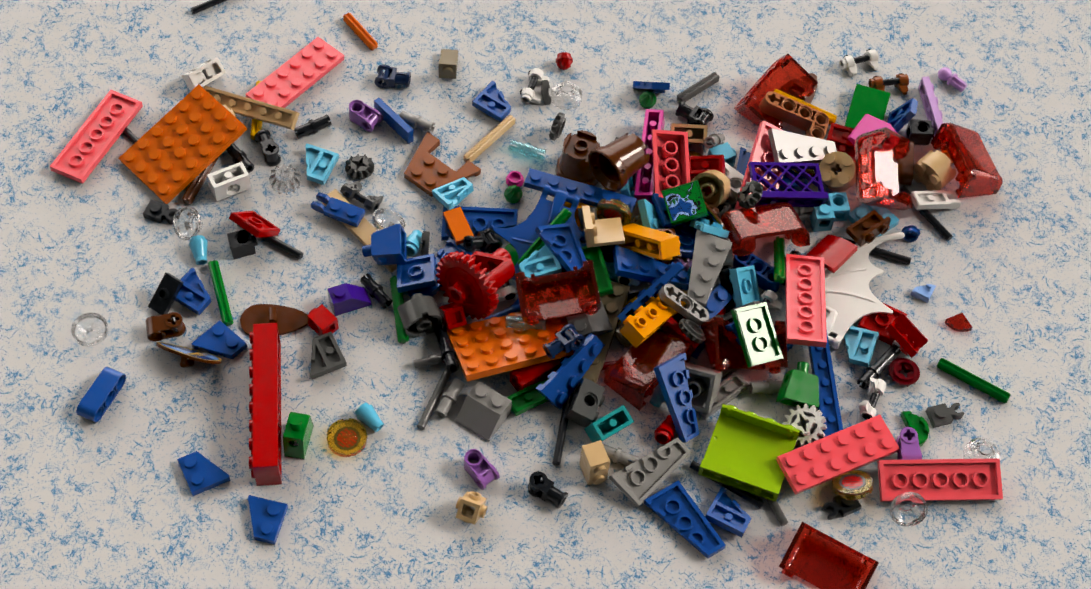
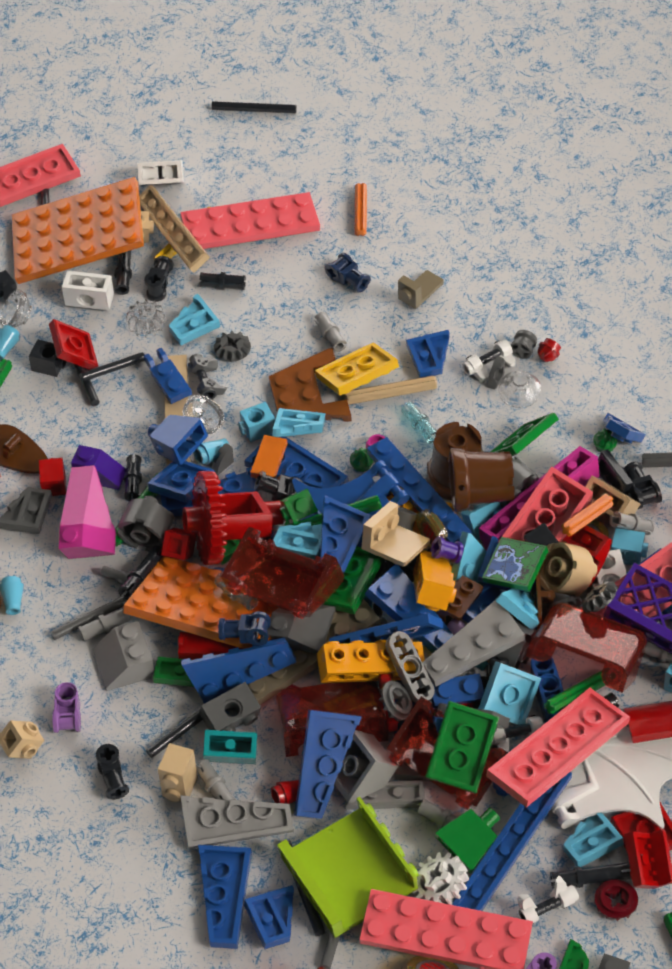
camera: 45 degrees right, 5 degrees down
(196, 184) = (56, 280): reddish brown axle -> none
(293, 223) = (111, 367): none -> black bar
(364, 115) = (281, 295): medium lavender piece -> none
(379, 337) = (85, 518): none -> dark pink wedge
(394, 120) = (307, 317): blue tile -> none
(426, 206) = (256, 421): none -> medium azure brick
(458, 136) = (356, 368): none -> yellow plate
(517, 244) = (297, 506): none -> green bracket
(546, 64) = (523, 344): none -> dark grey wheel
(557, 126) = (471, 413): dark grey gear -> none
(607, 122) = (526, 434): none -> green tile
(640, 216) = (447, 549): none -> dark purple bush
(674, 115) = (613, 473): none -> black plate
(680, 177) = (541, 536): none -> black tile
(694, 154) = (587, 515): none -> orange axle

